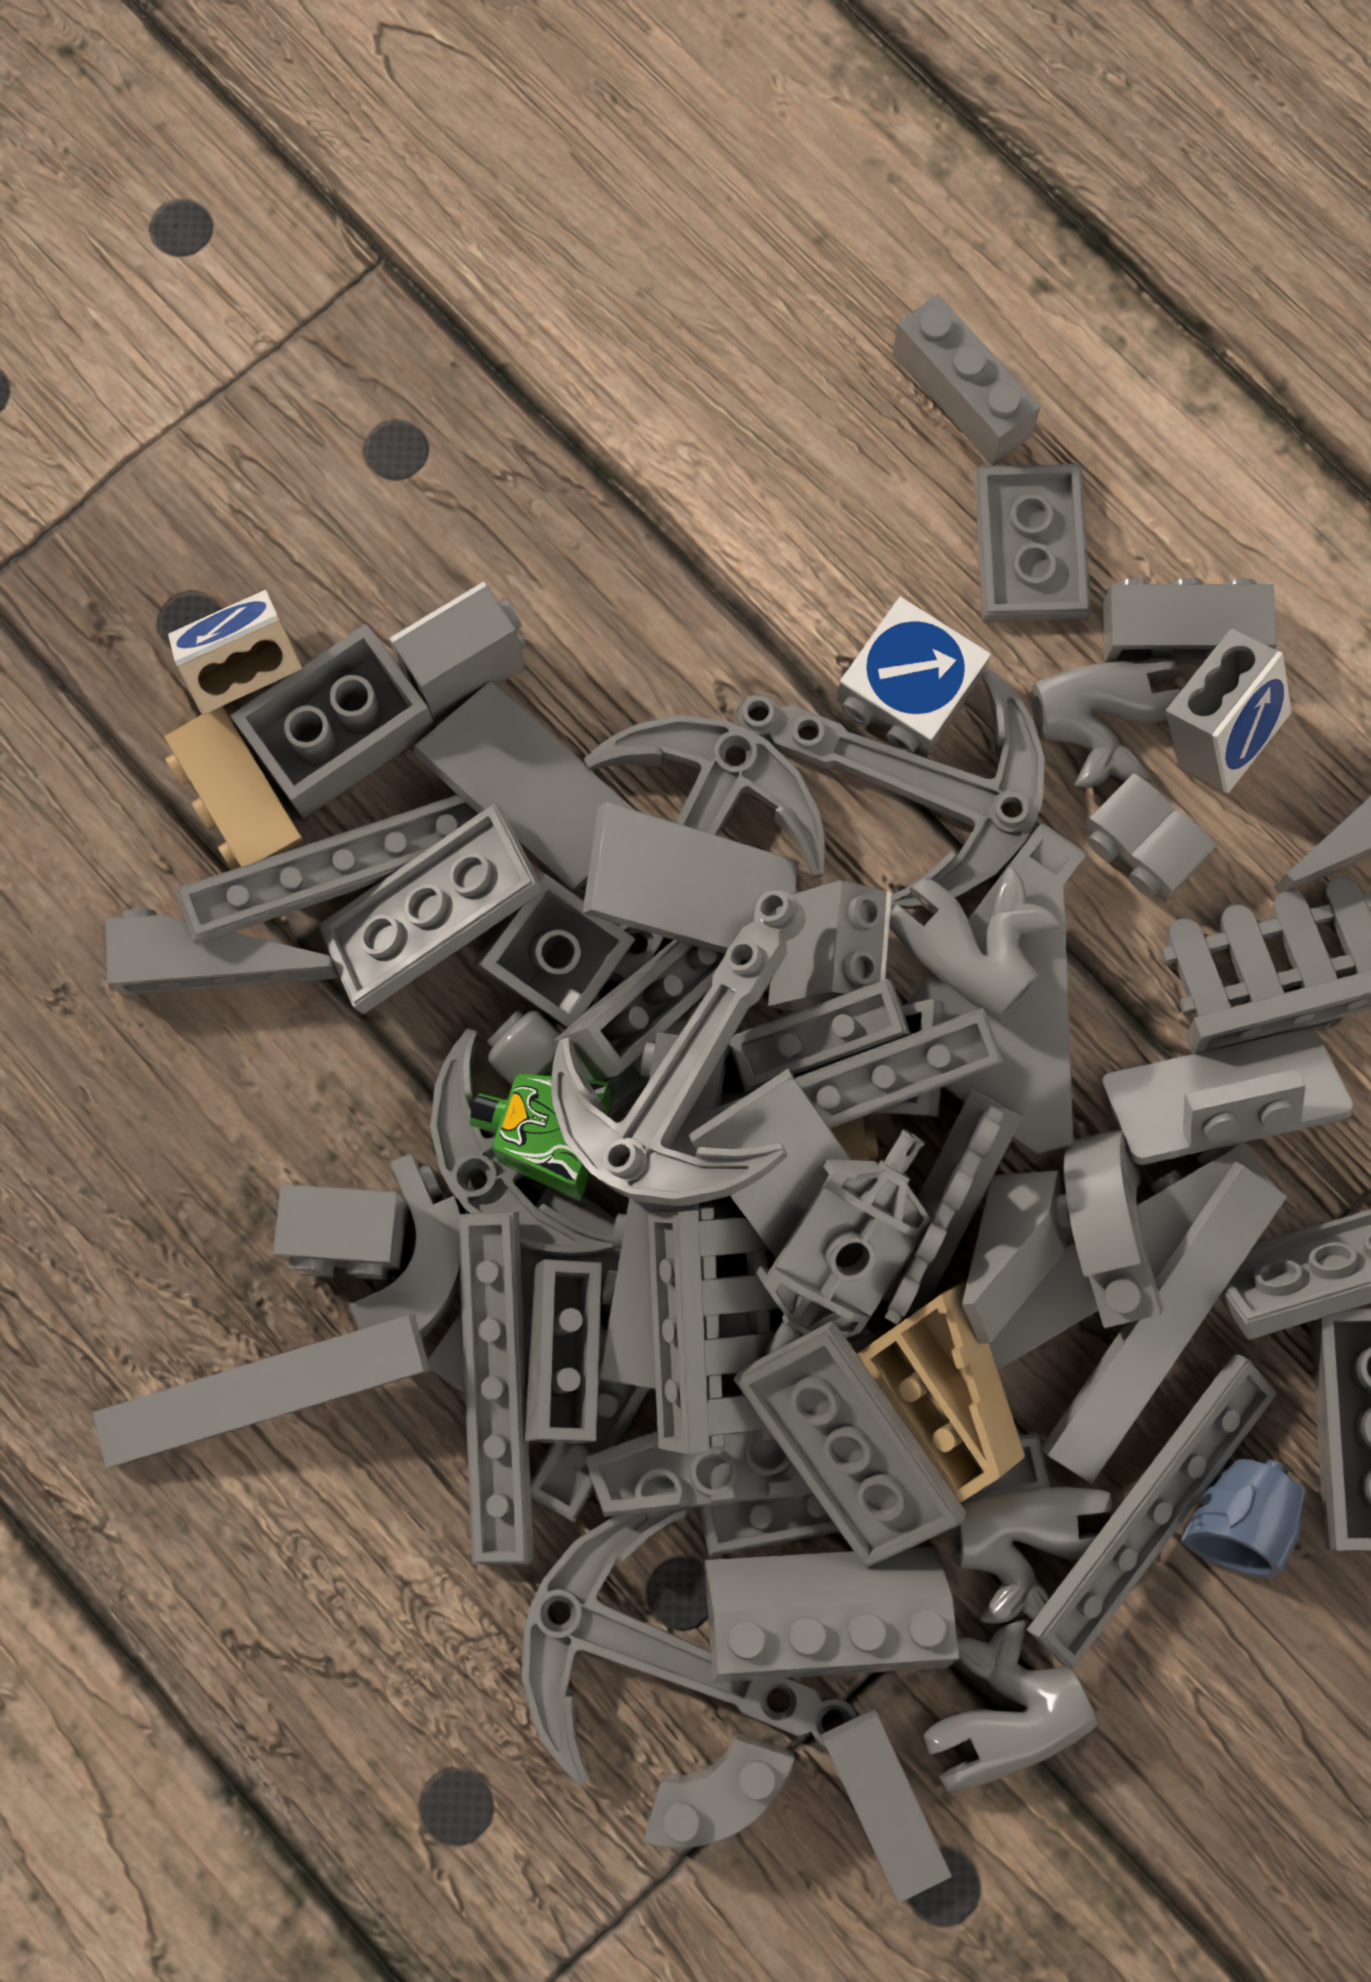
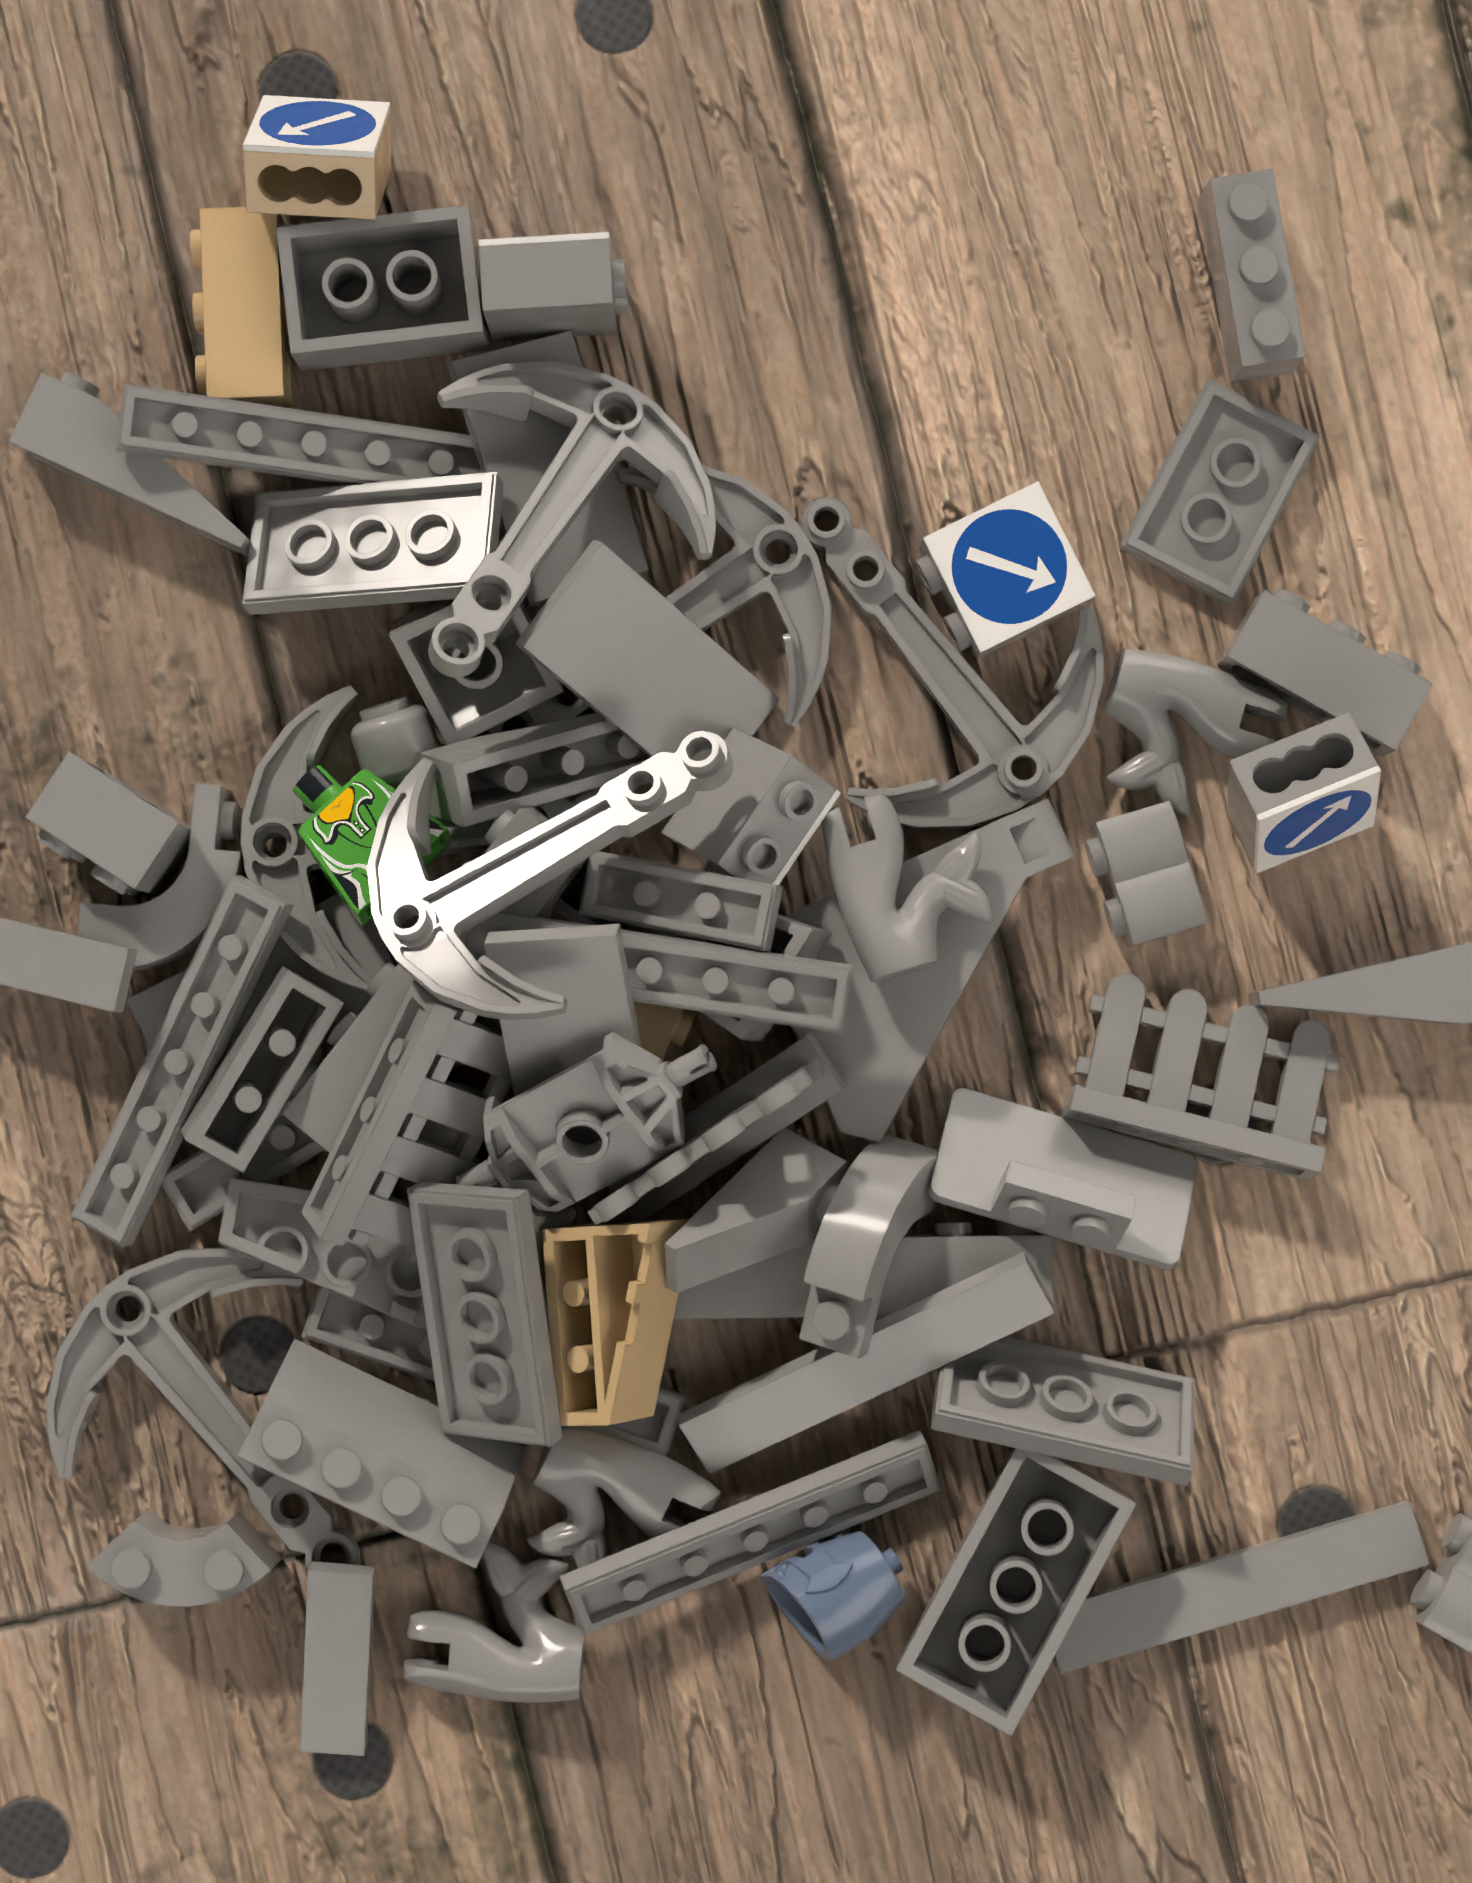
camera: 20 degrees right, 10 degrees up
(558, 730) = (592, 449): none -> light grey piece

